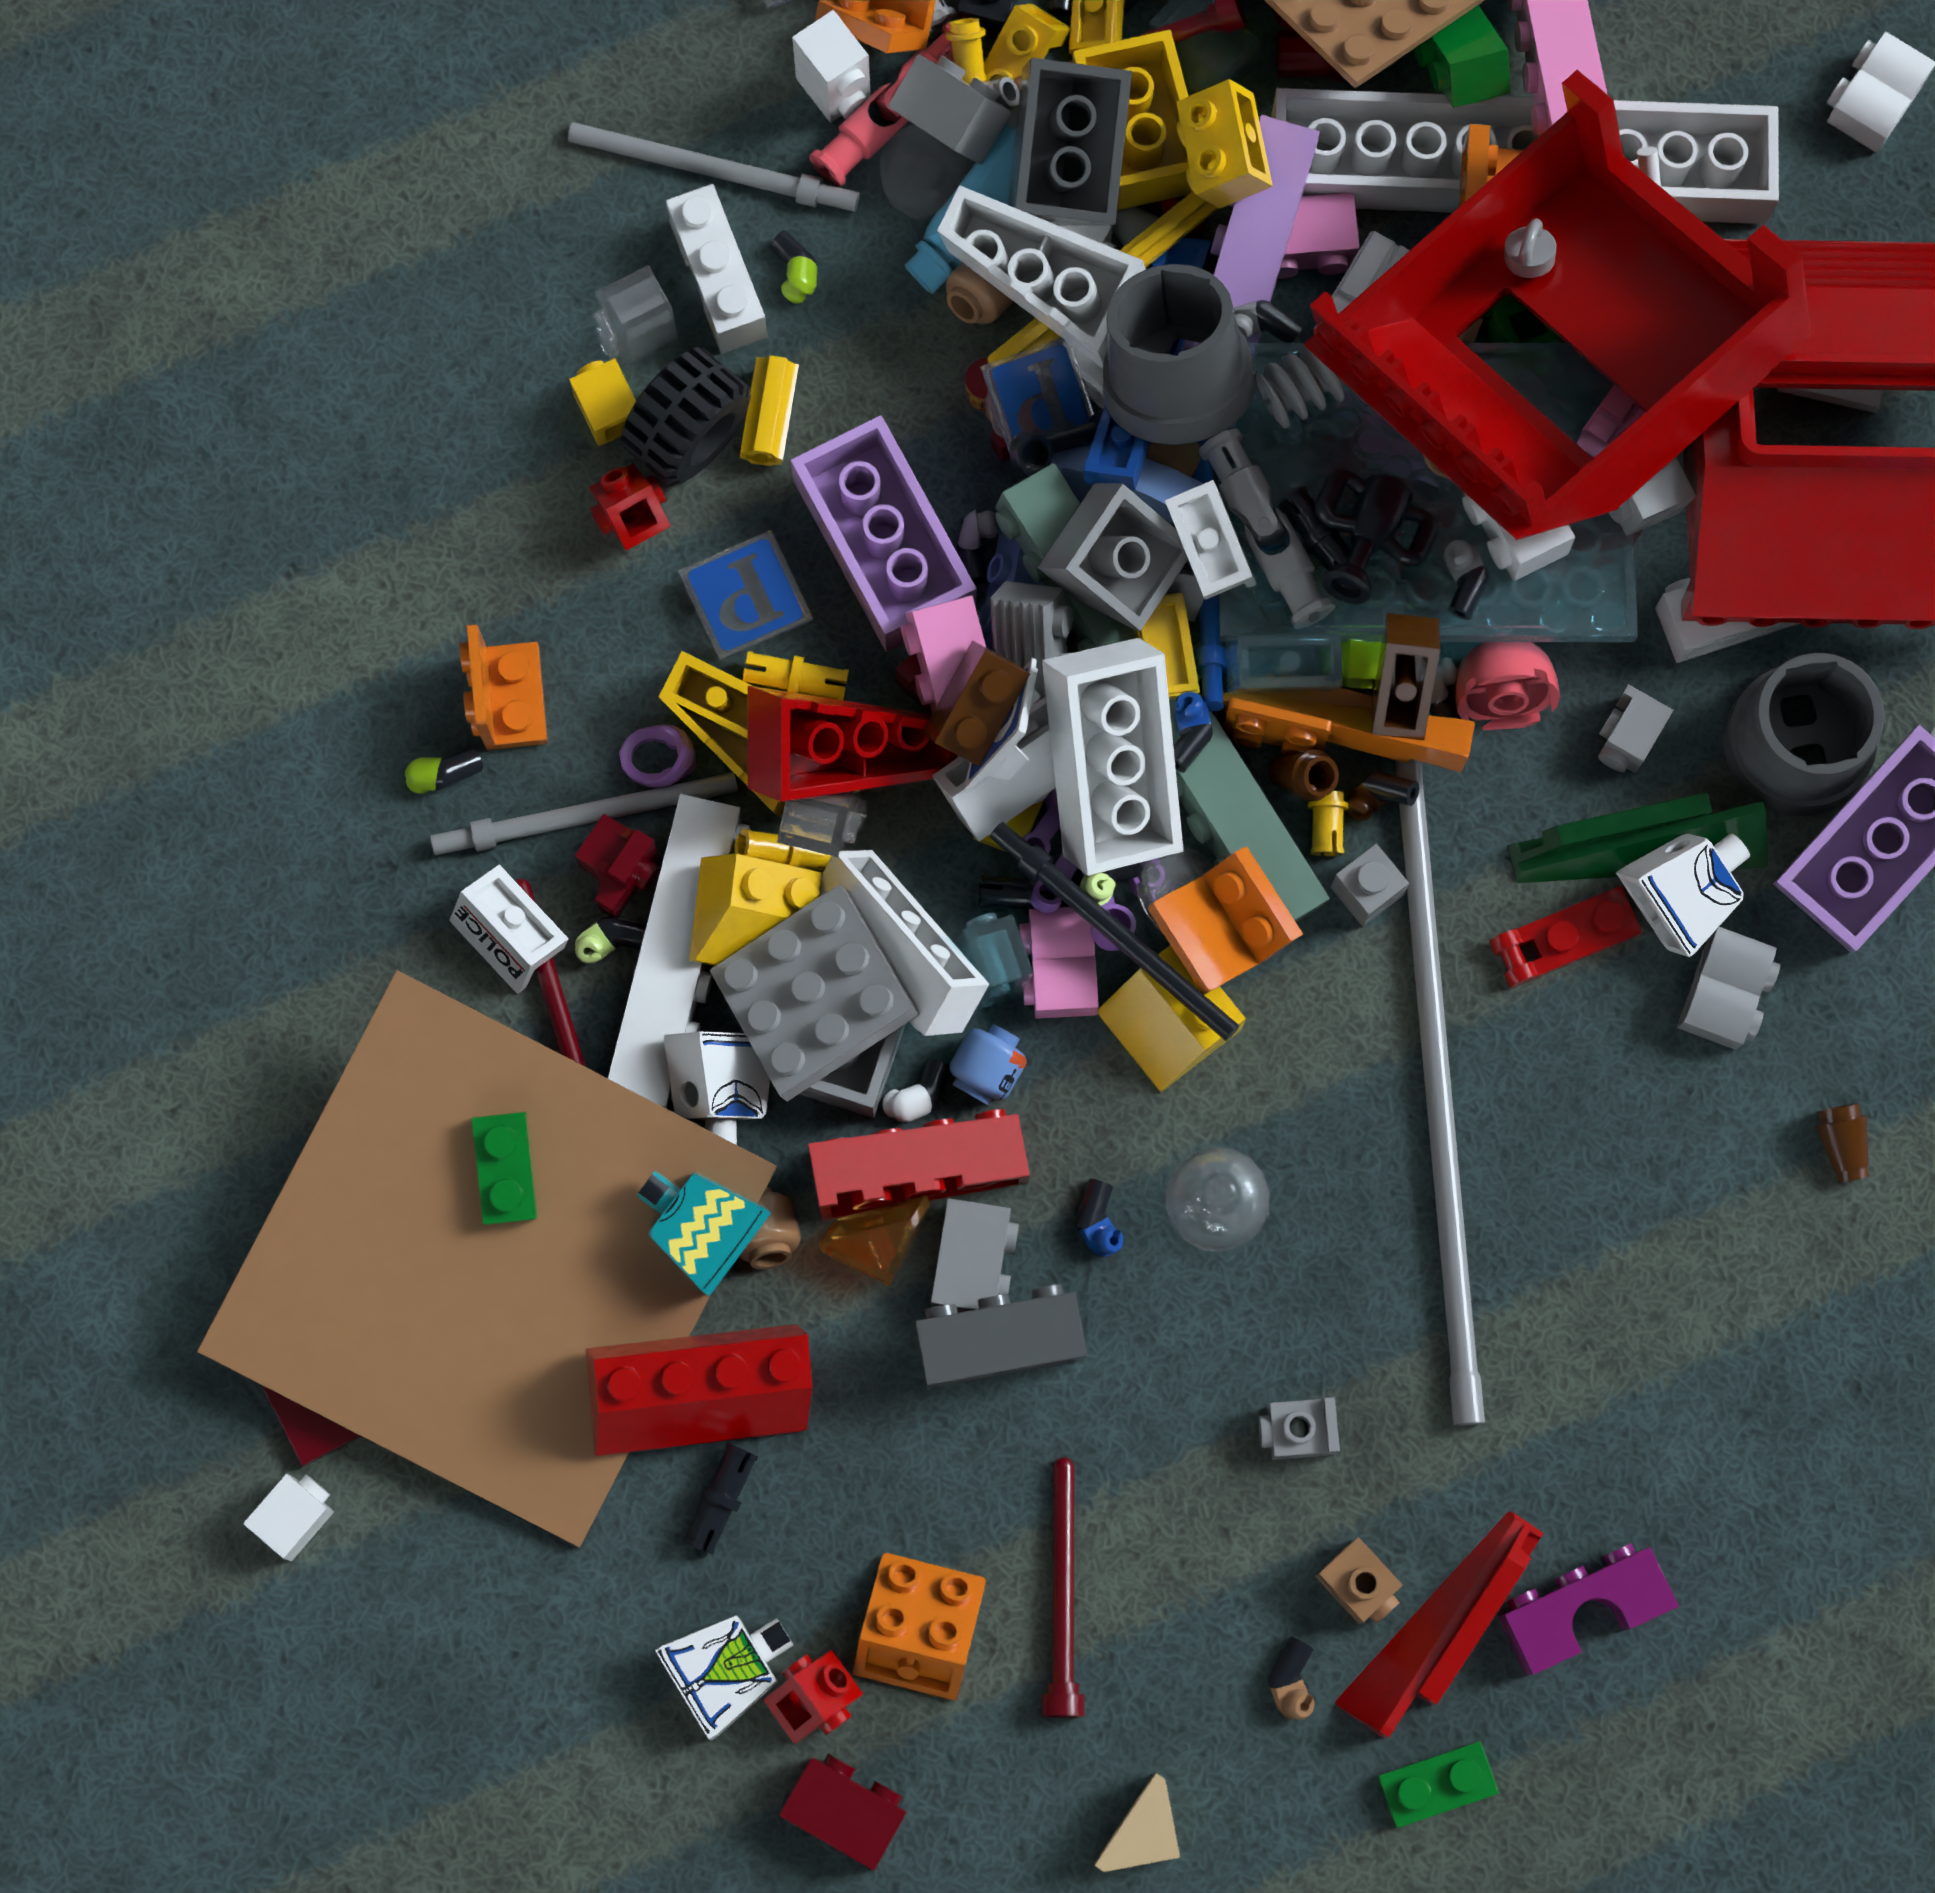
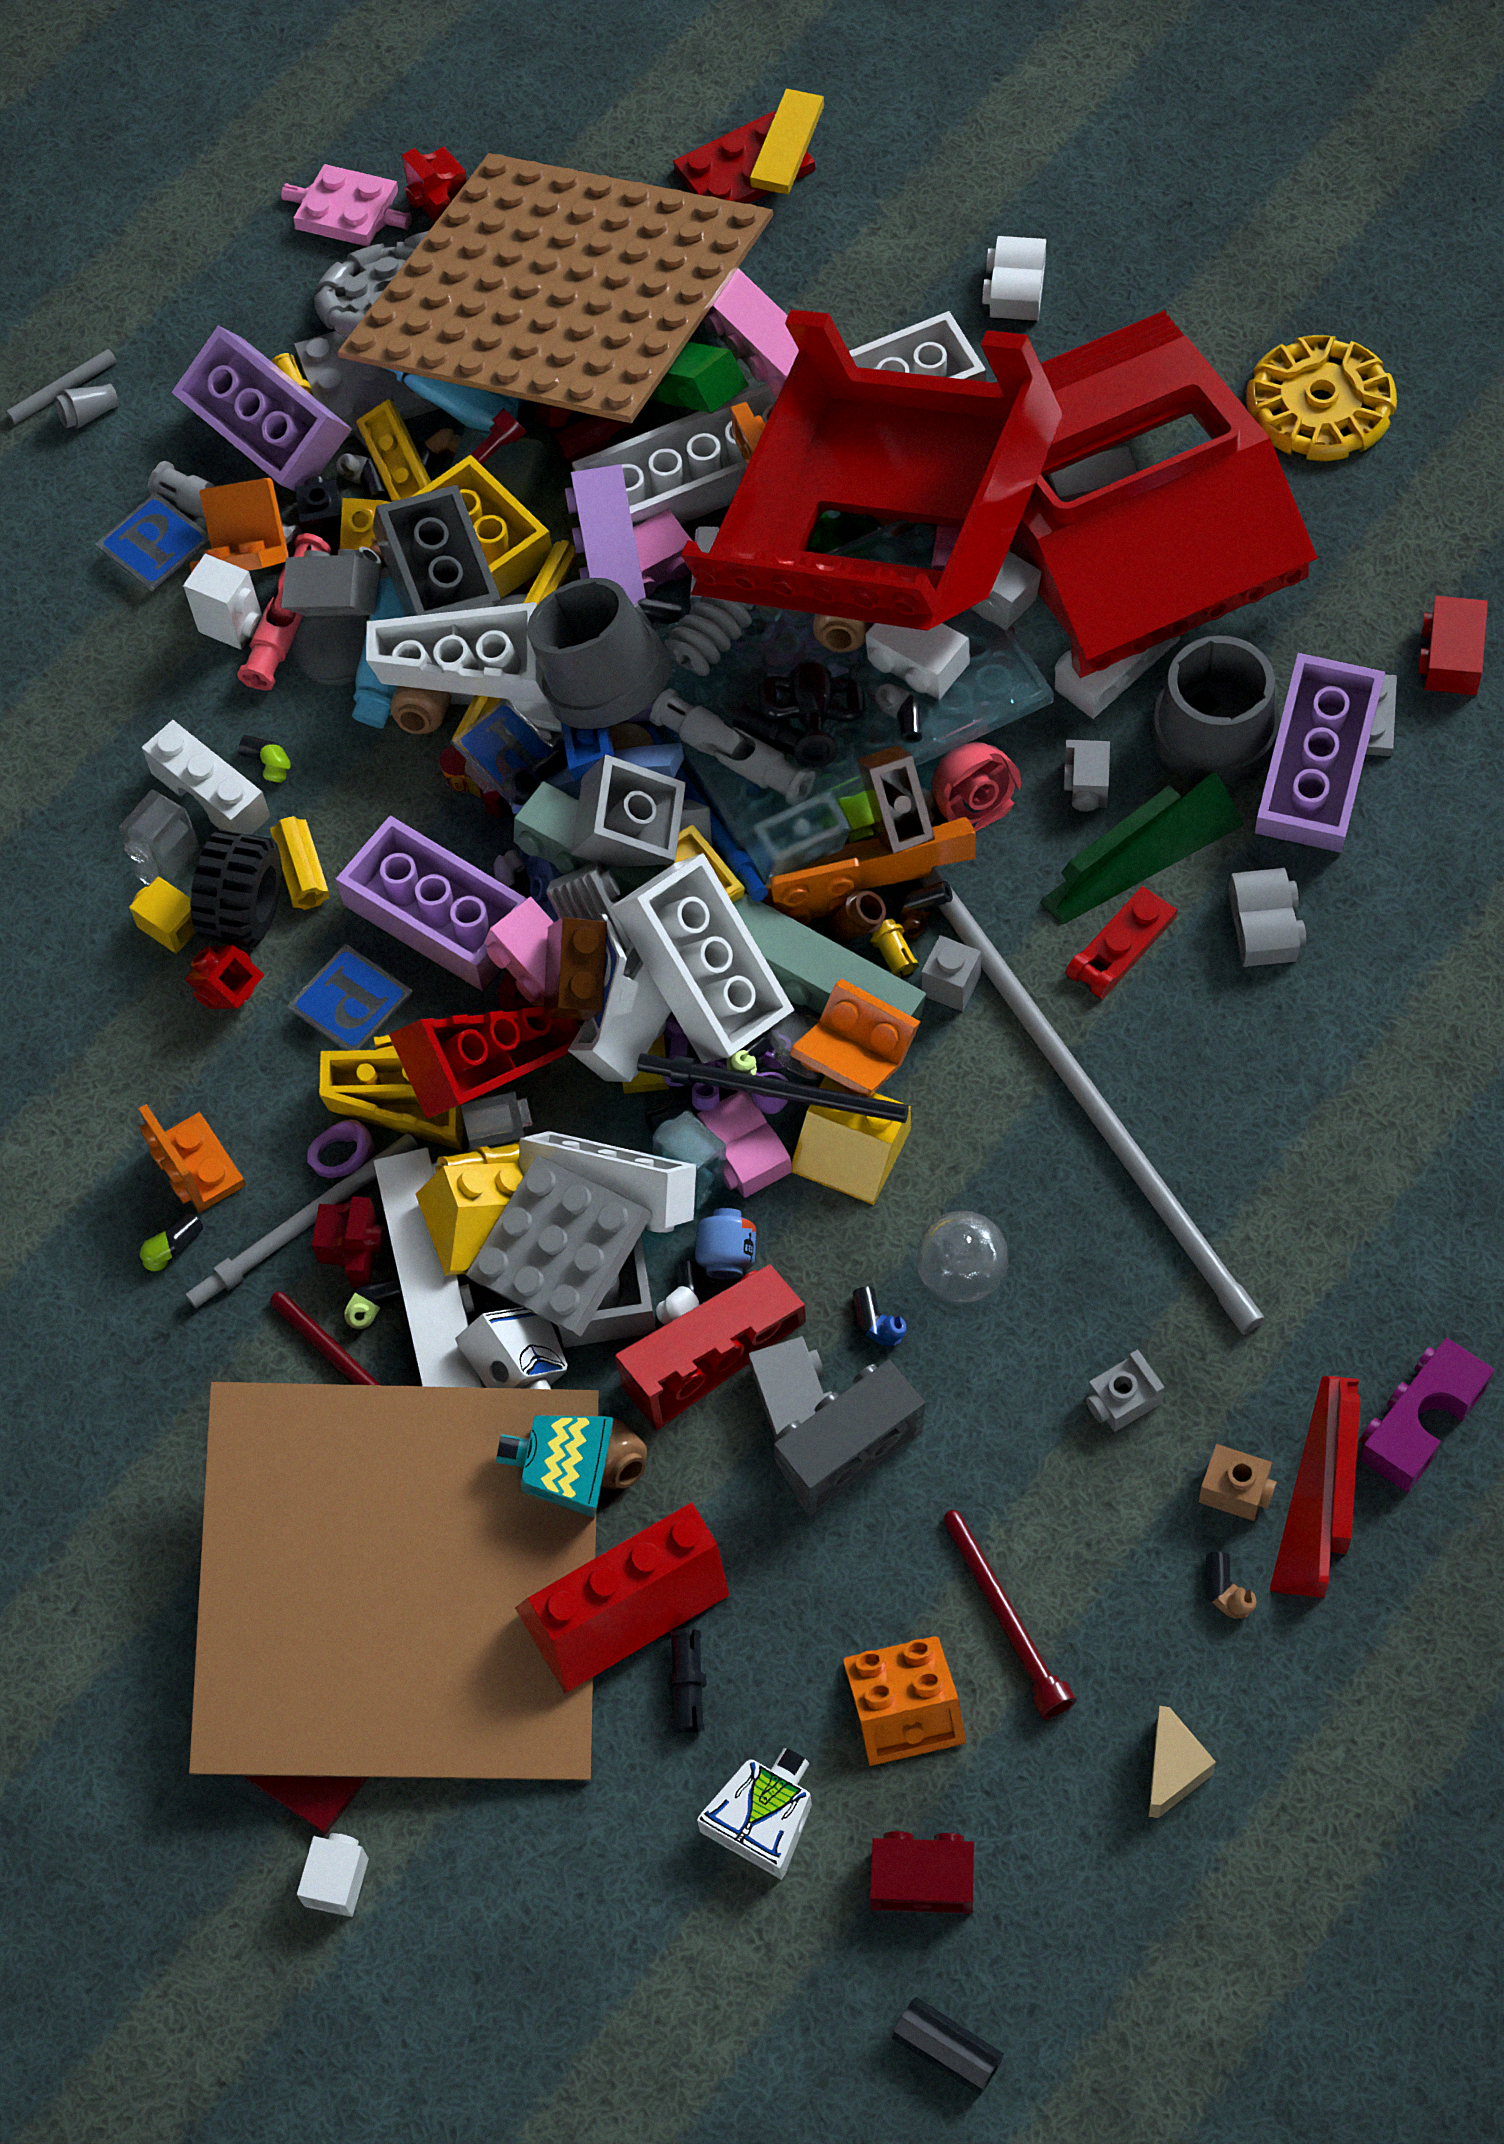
camera: 20 degrees left, 15 degrees down
(504, 1168) = (376, 1495): green plate -> none
(506, 927) = (282, 1331): white panel -> none
(807, 189) = (248, 700): light grey bar -> none
(821, 1689) = (848, 1792): red brick -> none
(876, 1239) = (710, 1415): clear orange slope -> none
(967, 47) = (319, 537): yellow pin -> none
(1193, 729) = (753, 913): arm -> none
(1210, 540) = (694, 768): white panel -> none
(1223, 144) = (553, 504): yellow brick -> none
(1438, 1784) = (1387, 1609): green plate -> none
(1530, 250) = (823, 464): light grey tile -> none
(1686, 888) = (1192, 860): white torso -> none
(1845, 1140) = (1416, 980): reddish brown cone -> none

